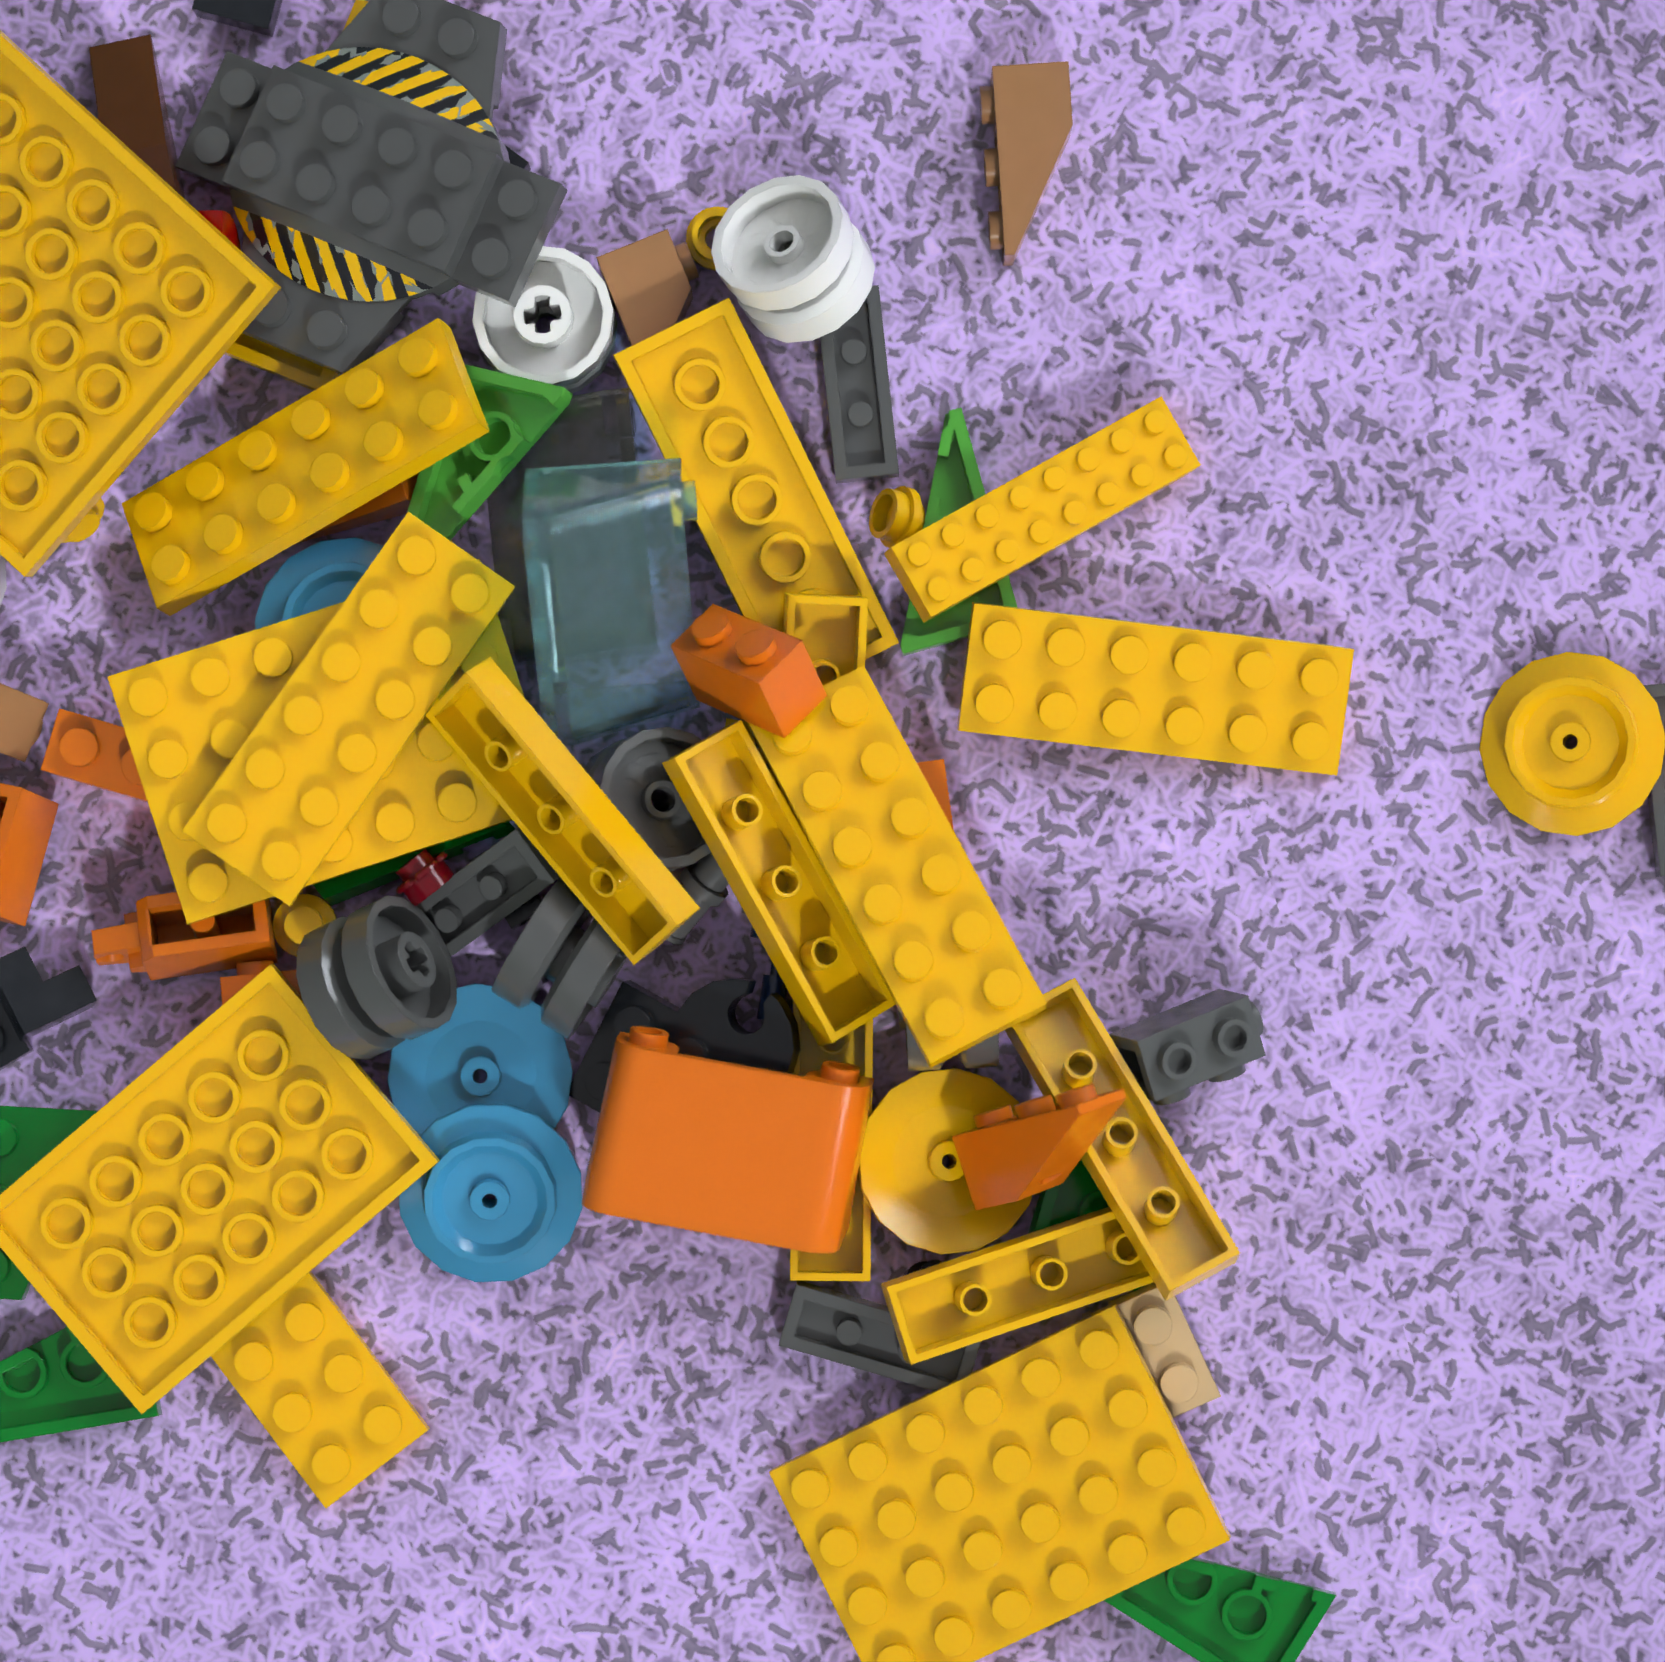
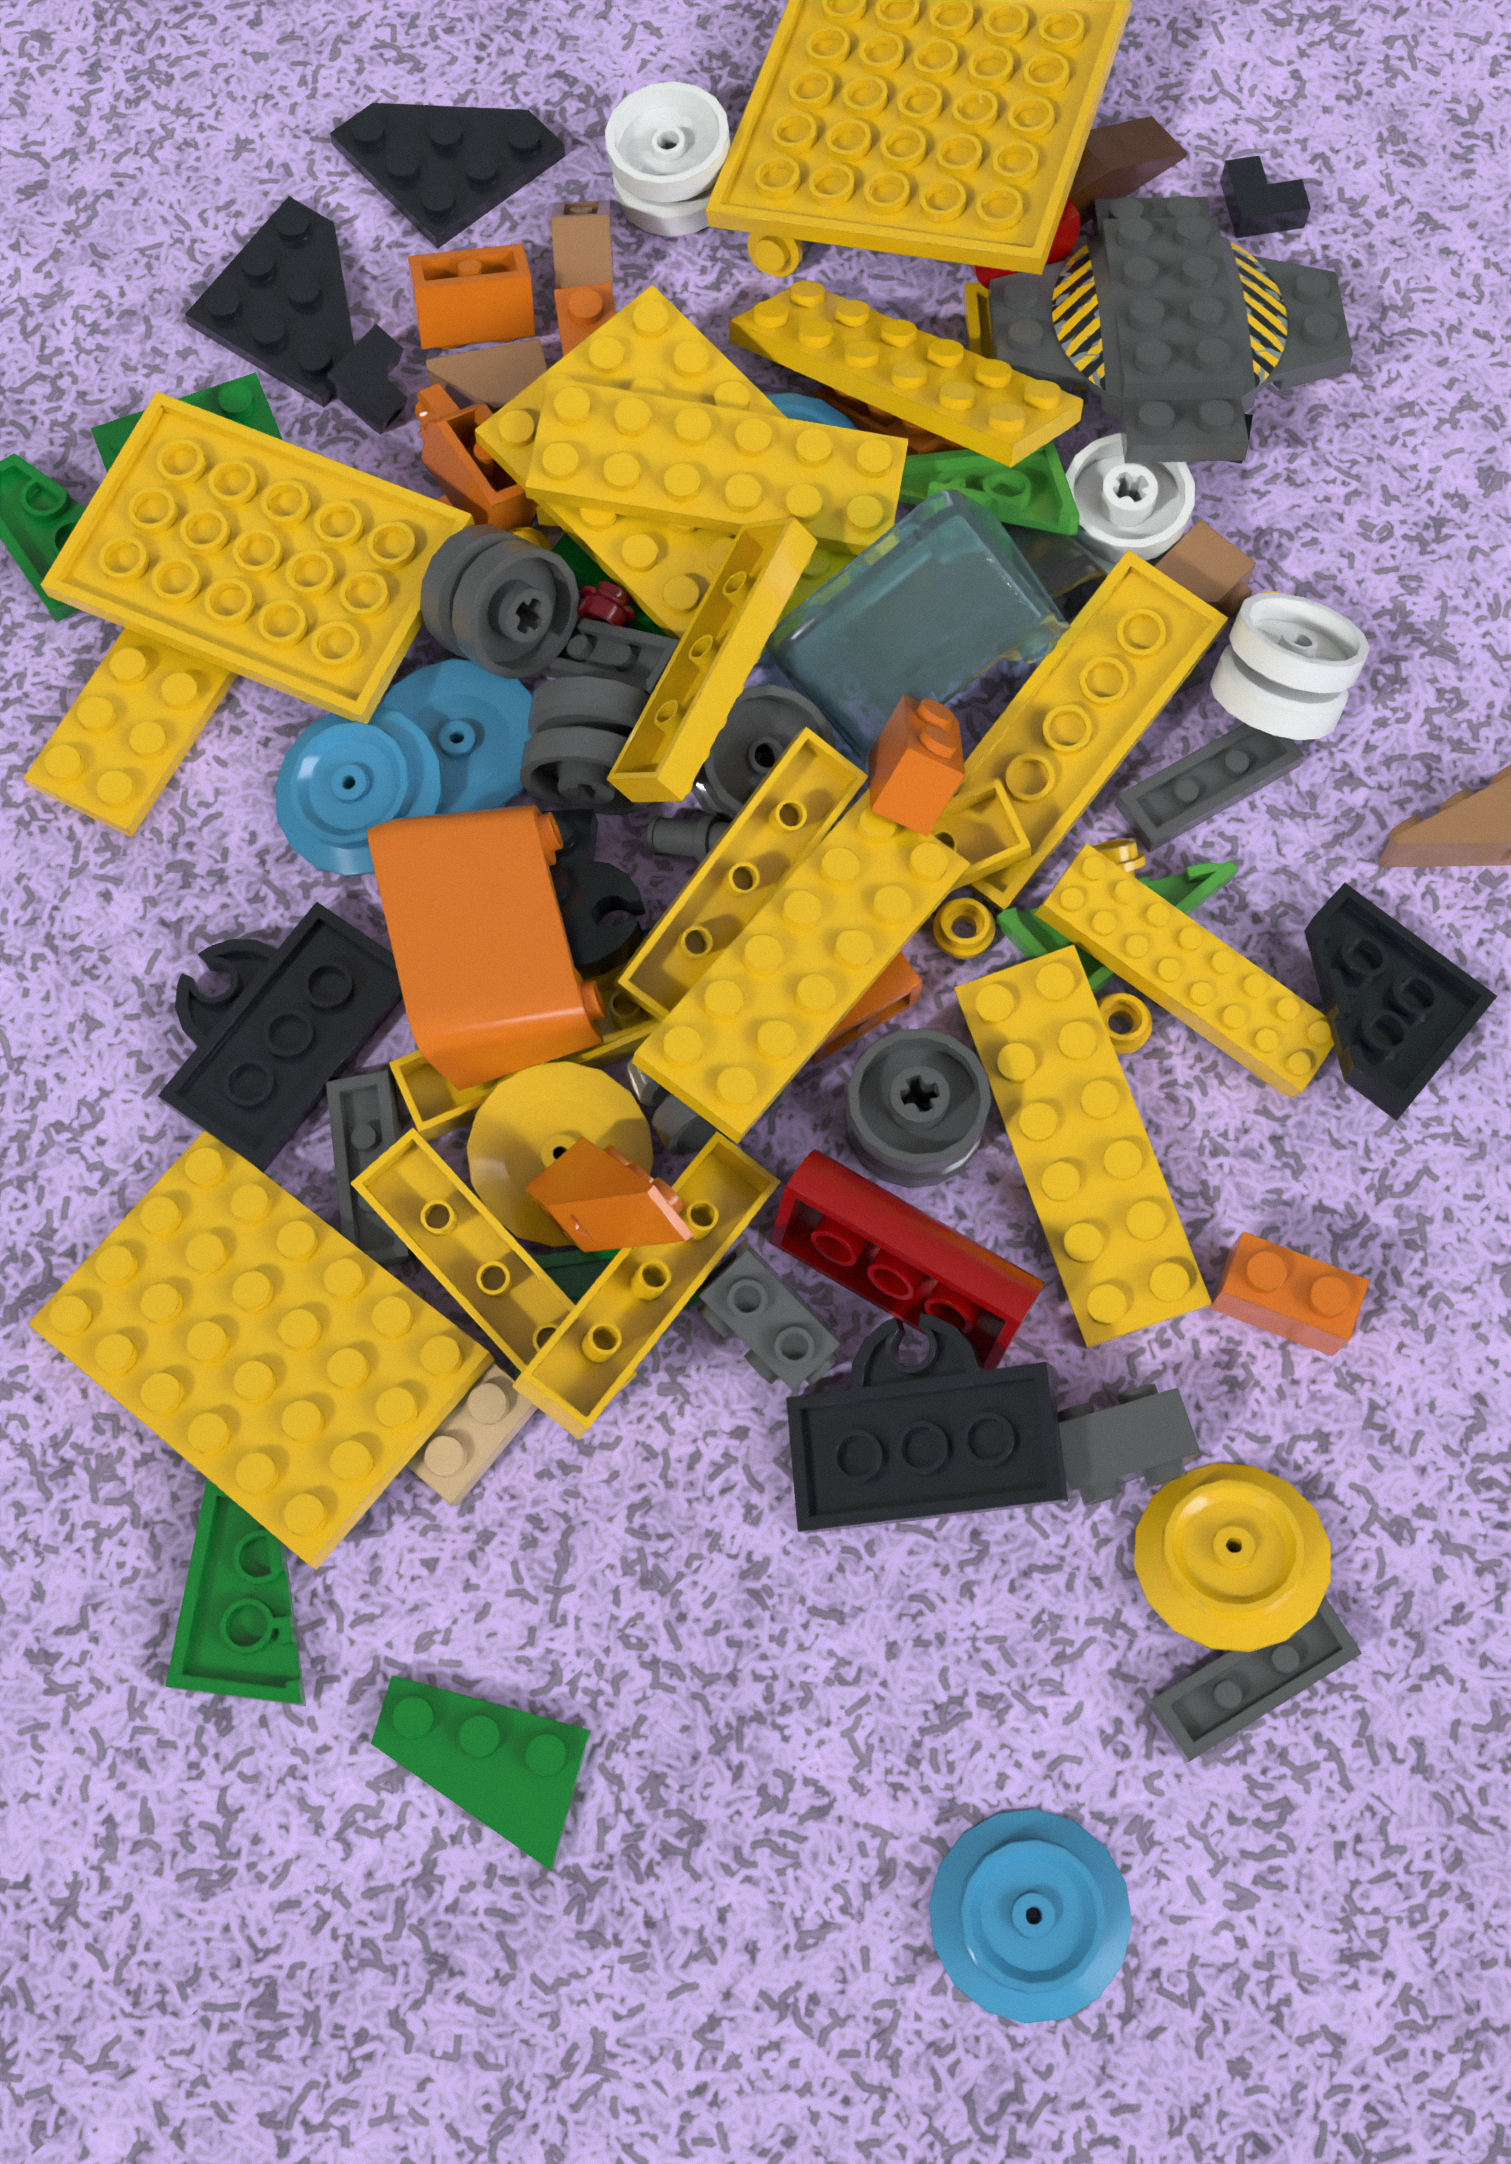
camera: 60 degrees right, 15 degrees down
(110, 868) = (488, 374): none -> medium nougat slope
(703, 1367) = (278, 1030): none -> black plate
(911, 674) = (967, 911): none -> yellow plate
(1054, 570) = (1135, 1012): none -> yellow plate
(1065, 783) = (883, 1101): none -> dark grey wheel
(1152, 340) = (1388, 999): none -> black plate
(1192, 897) = (901, 1256): none -> red brick
(1358, 960) = (925, 1436): none -> black plate
(1376, 577) = (1289, 1294): none -> orange brick
(1437, 806) = (1130, 1441): none -> dark grey brick
(1448, 1456) = (488, 1759): none -> green wing

